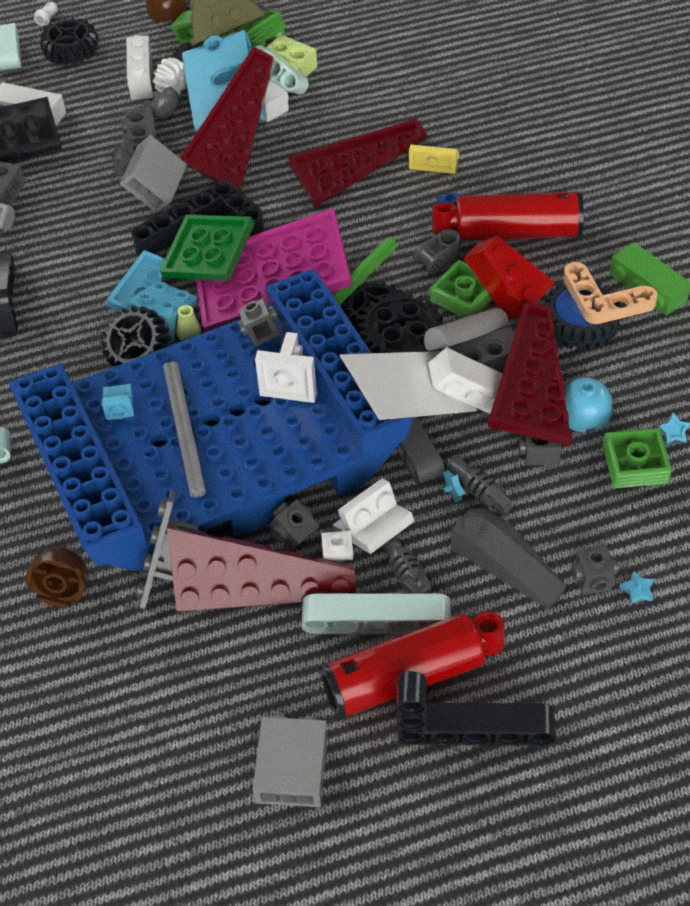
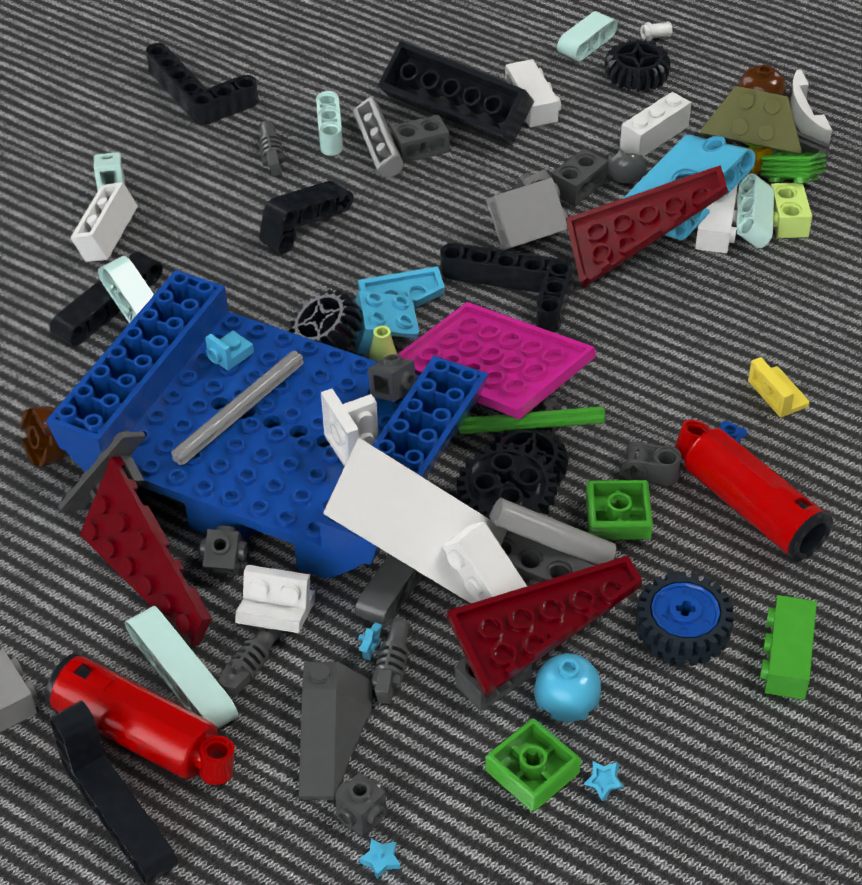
camera: 50 degrees right, 5 degrees down
(171, 74) = (657, 146): white gear -> none
(207, 247) = (476, 301): green plate -> none
(337, 546) = (221, 595): white bracket -> none
(339, 165) = (691, 328): dark red wing -> none
(507, 275) = (652, 526): red wedge -> none
(637, 299) = (701, 622): light nougat beam -> none

